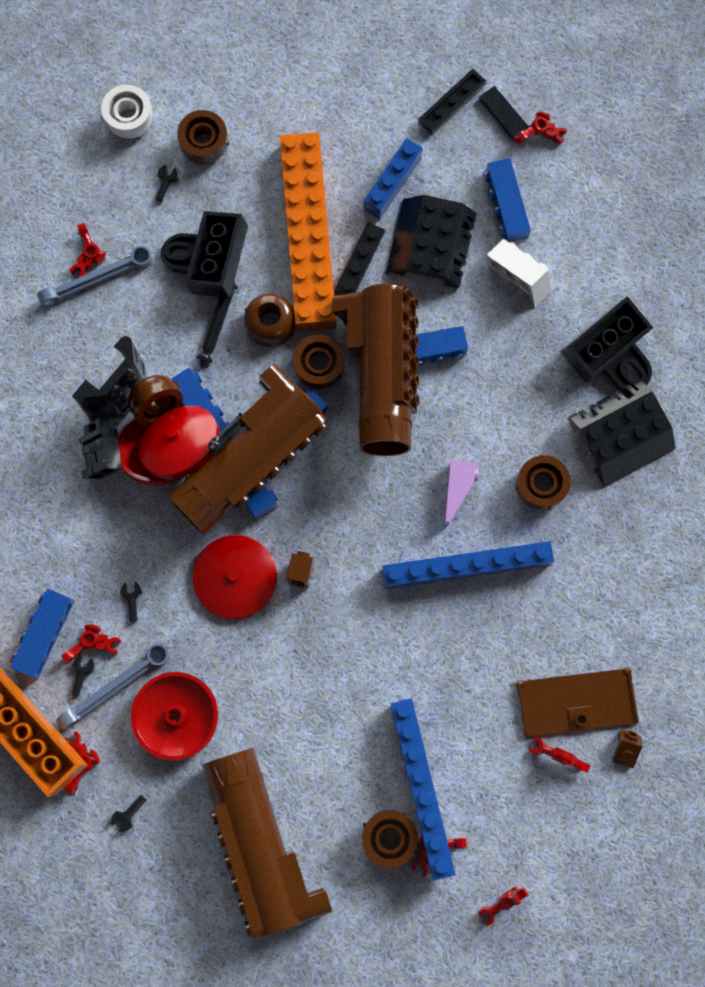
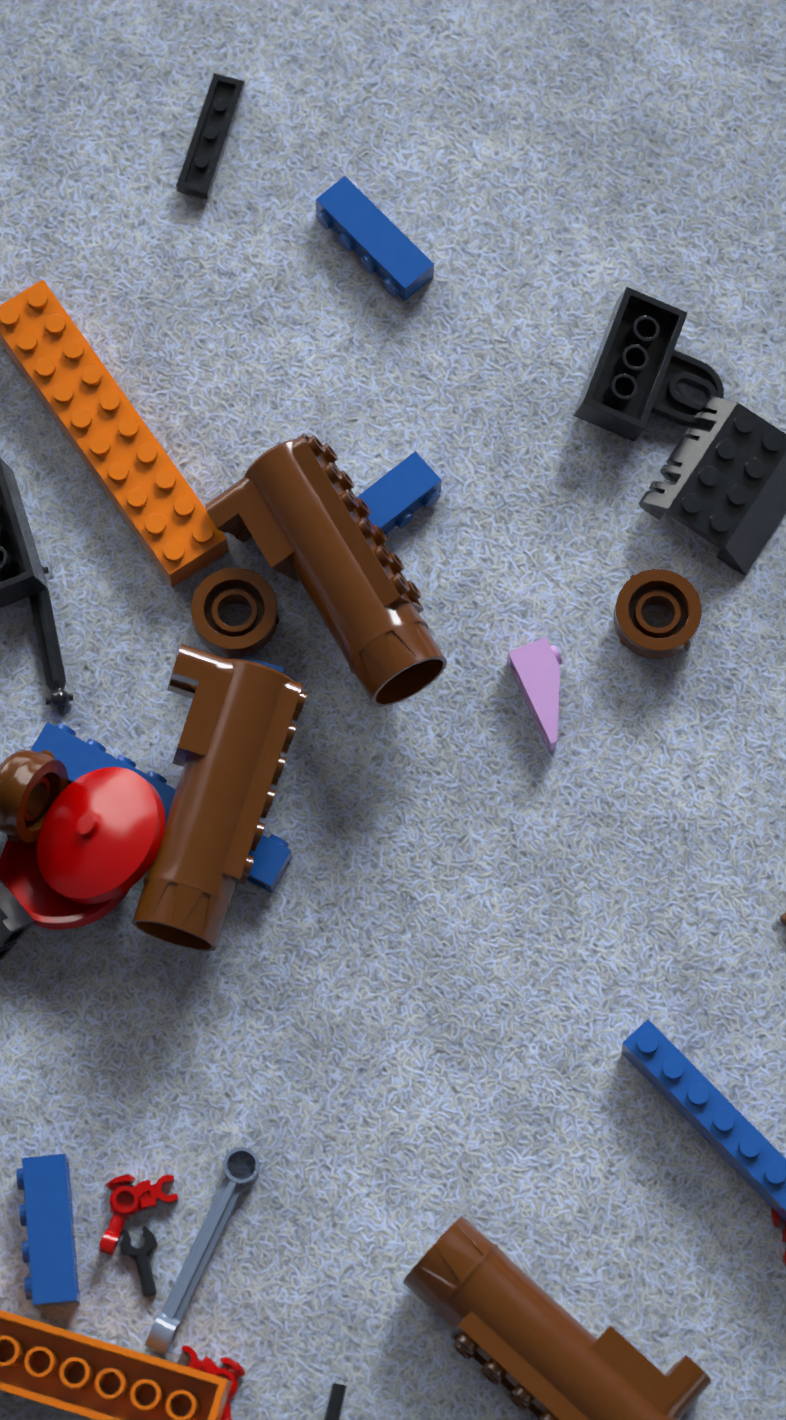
camera: 30 degrees left, 5 degrees down
(132, 606) = (154, 1108): black bar -> none
(174, 716) = (319, 1238): red dish -> none
(225, 435) = (165, 784): black wheel -> none
(234, 577) = (288, 992): red dish -> none
(269, 335) = (127, 616): reddish brown piece -> none
(300, 569) = (382, 925): reddish brown brick -> none
(360, 259) = (207, 435): black plate -> none
(389, 857) = (747, 1211): reddish brown piece -> none
(393, 178) = (189, 292): blue brick -> none
(432, 239) = (295, 350): black slope -> none
(467, 565) = (616, 790): blue brick -> none
(503, 112) = (297, 115): black tile -> none
(521, 270) = (452, 328): white wedge -> none
(542, 127) = (365, 107): red piece -> none

